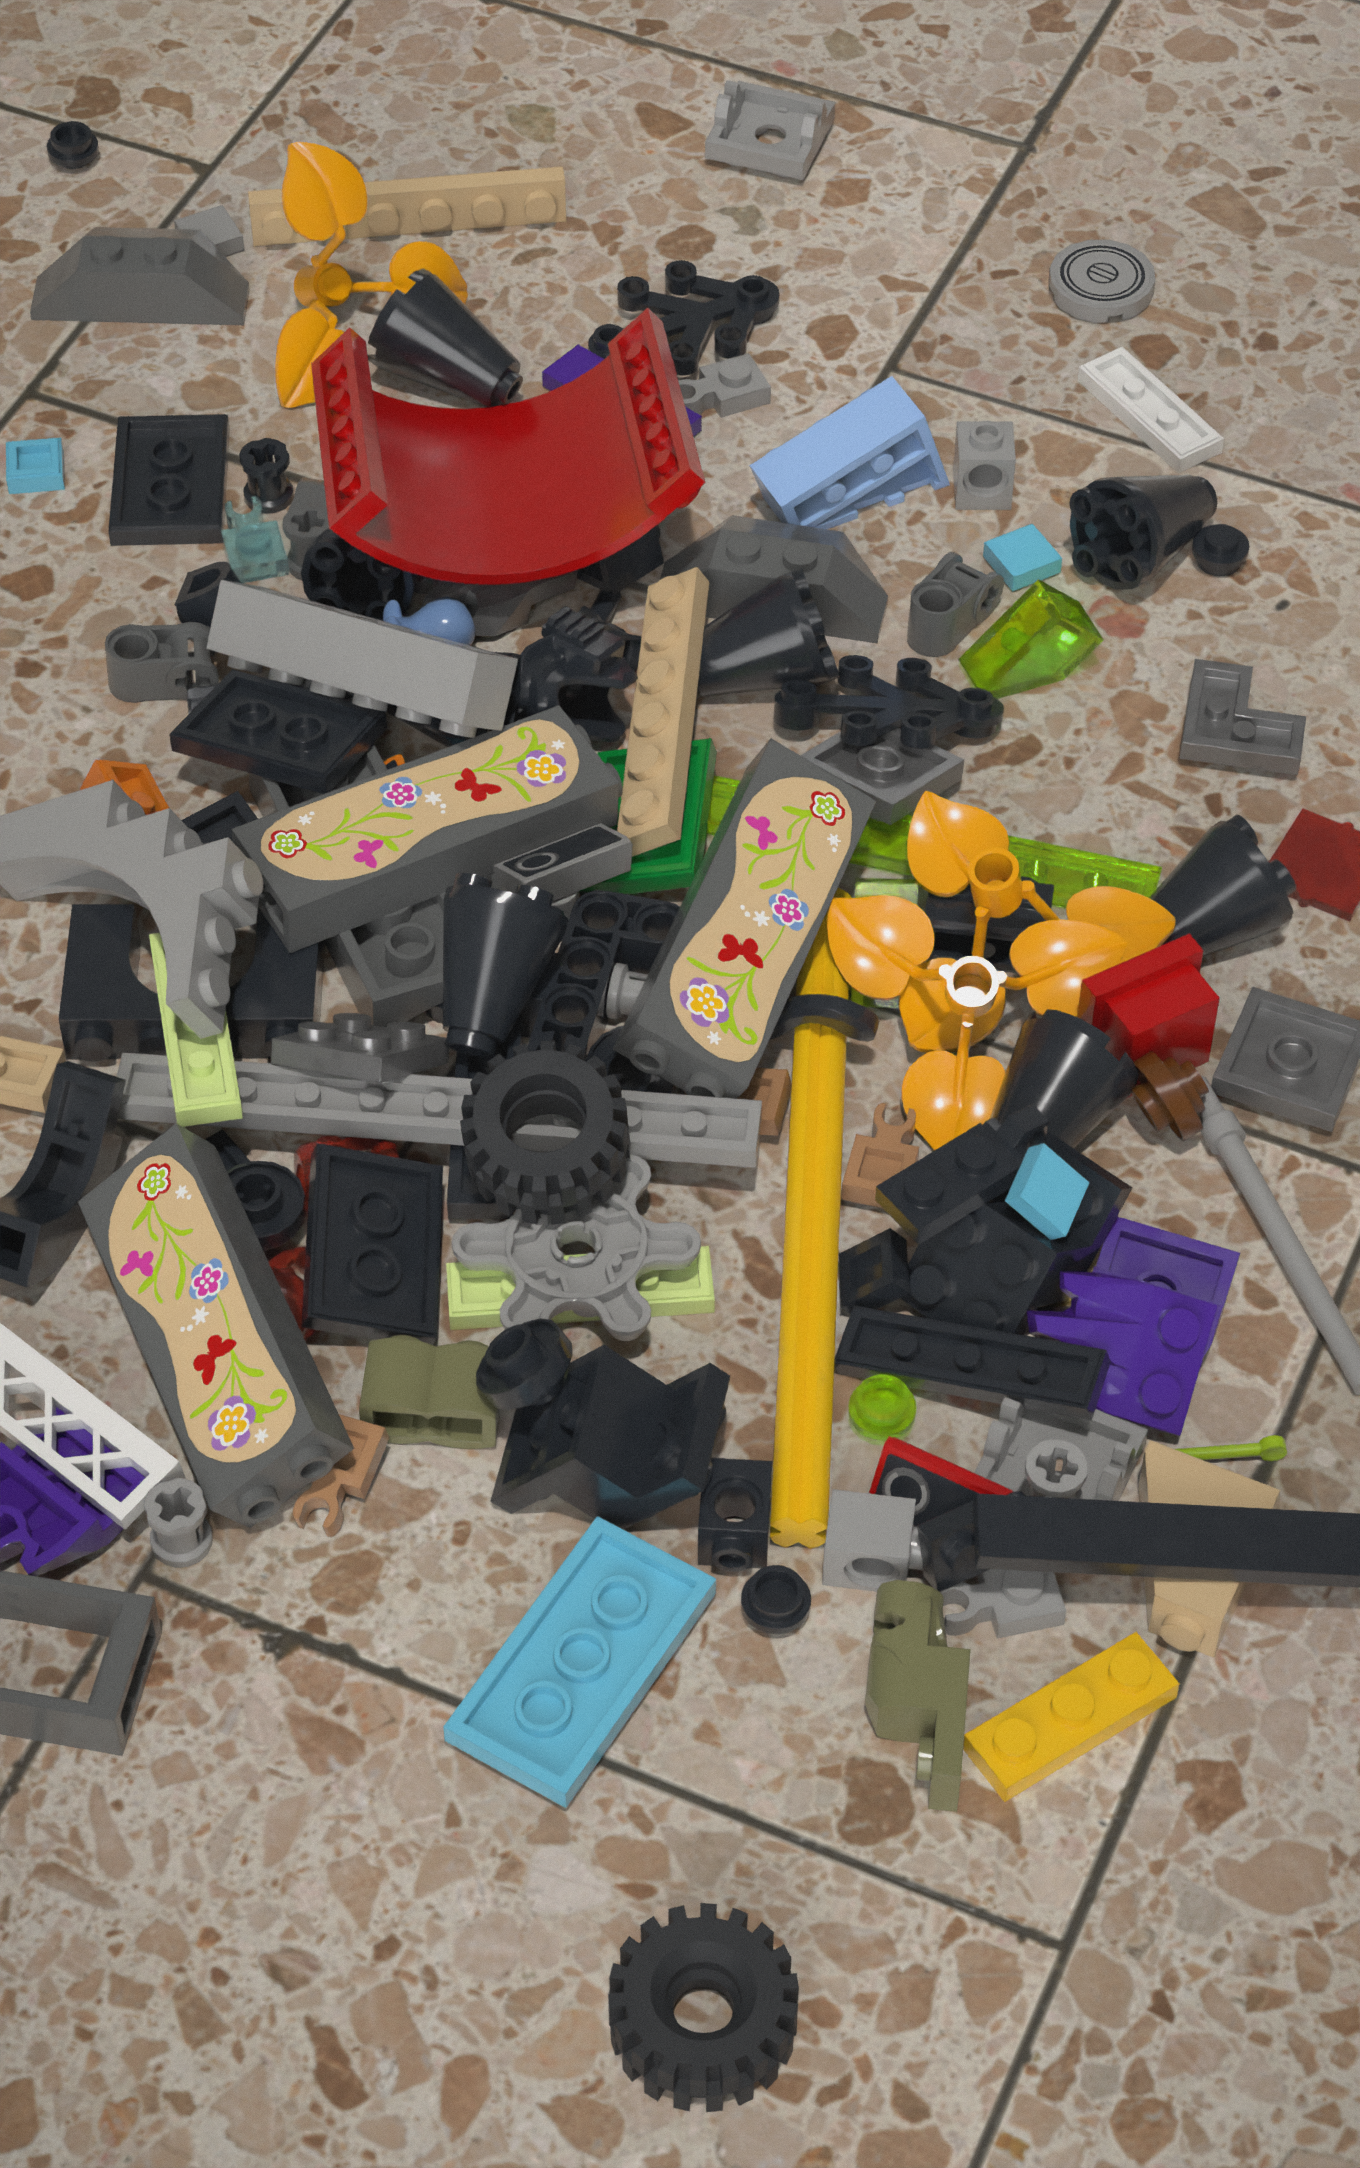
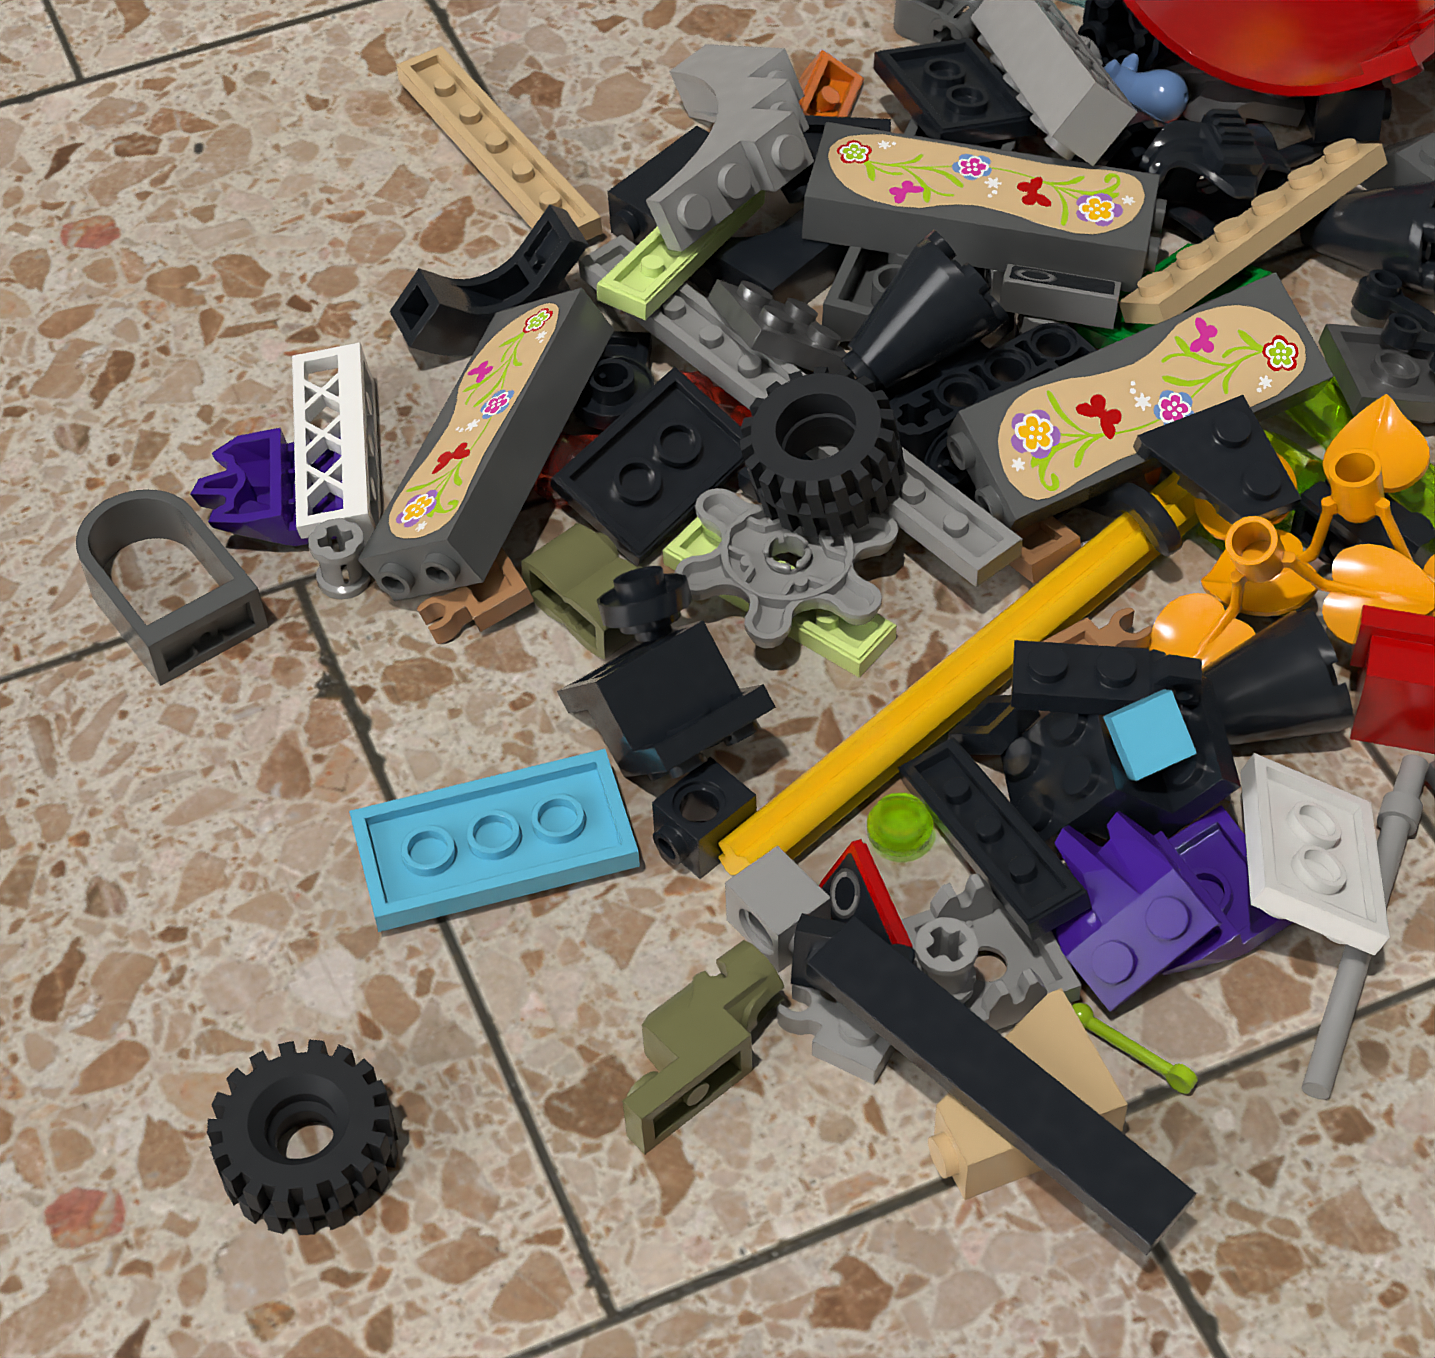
camera: 45 degrees right, 0 degrees up
(776, 1600) = (673, 901): black plate -> none
(865, 929) = (1224, 461): none -> black wing
(1070, 1716) = (799, 1152): yellow plate -> none
(1170, 1094) = (1372, 750): reddish brown plate -> none
(1216, 1206) = (1313, 855): none -> white plate

